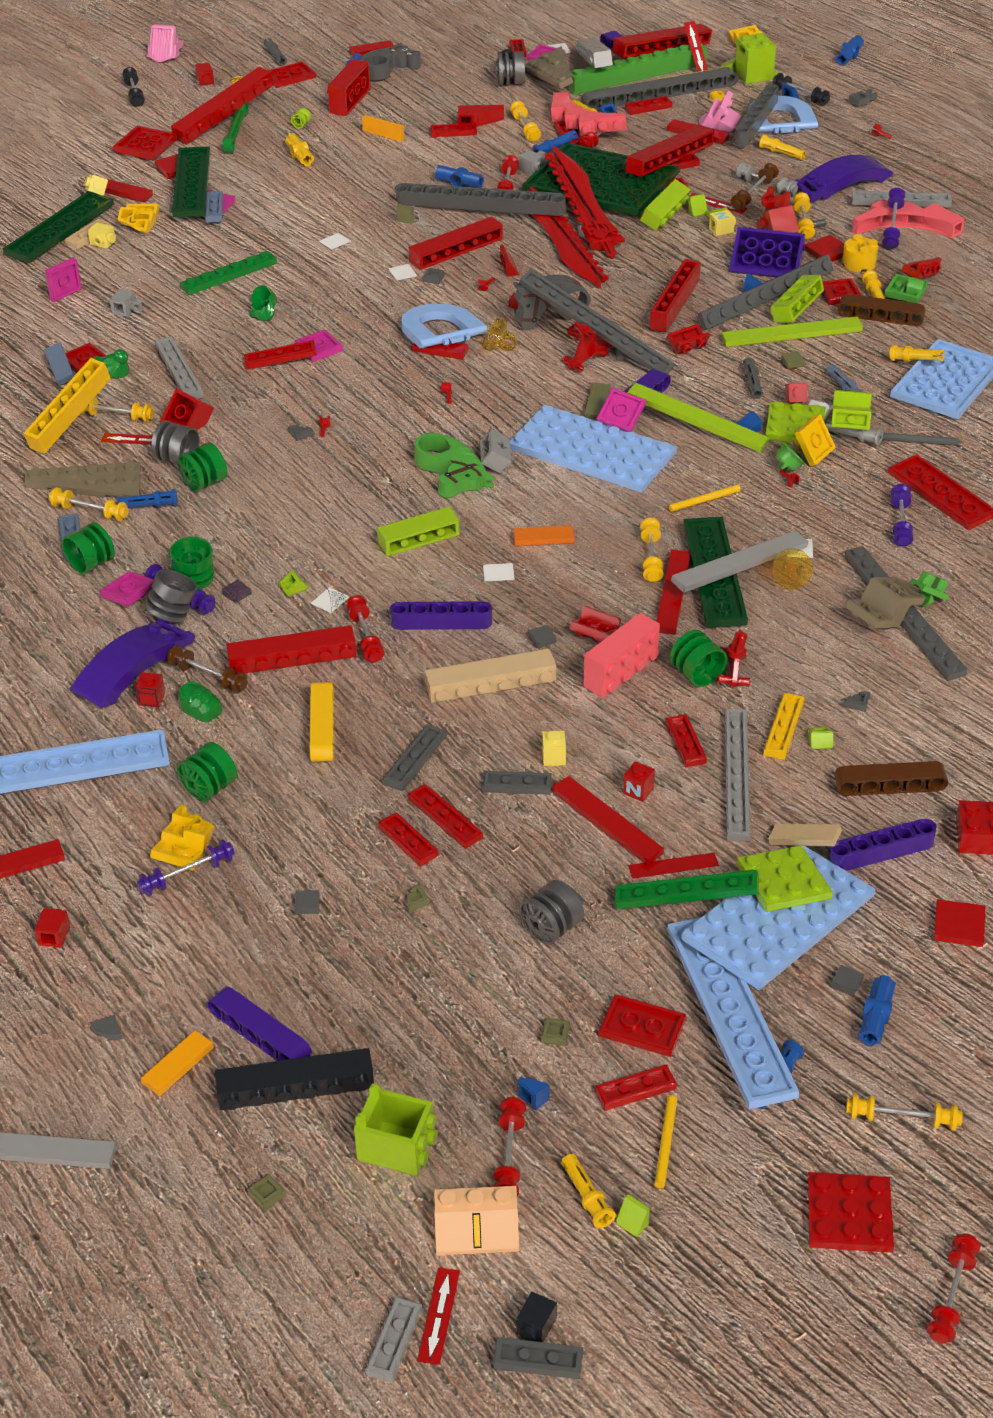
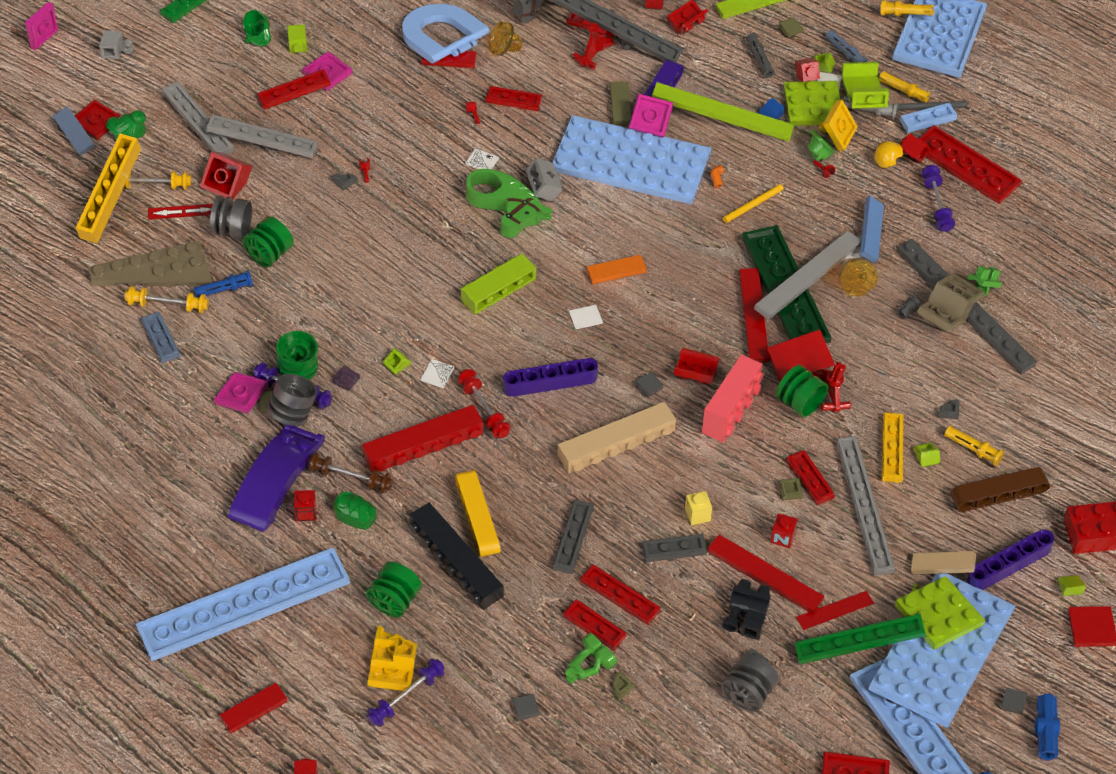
camera: 15 degrees left, 10 degrees up
(88, 548) = (189, 354): green wheel -> none
(233, 386) = (262, 136): none -> light grey plate
(285, 755) = (456, 556): none -> black brick
(299, 316) = (297, 38): none -> lime brick
(397, 857) = (601, 653): none -> bright green piece
(443, 429) = (481, 160): none -> white sticker
(492, 386) = (514, 98): none -> red tile
(582, 848) = (752, 604): none -> black hips
(652, 565) = (727, 290): yellow axle -> none
(660, 748) = (790, 489): none -> olive tile
(673, 469) = (716, 171): none -> orange arm
(716, 624) = (805, 350): none -> red tile
(818, 391) = (826, 62): none -> lime slope
(822, 533) = (871, 229): none -> medium blue tile
(839, 604) = (912, 304): none -> dark grey pin
(857, 469) = (887, 153): none -> yellow hair
(881, 738) = (983, 449): none -> yellow pin
(889, 468) = (915, 147): none -> red brick
(899, 421) = (911, 90): none -> yellow pin
(911, 447) = (928, 117): none -> light blue plate
(946, 881) = (1071, 585): none -> lime slope

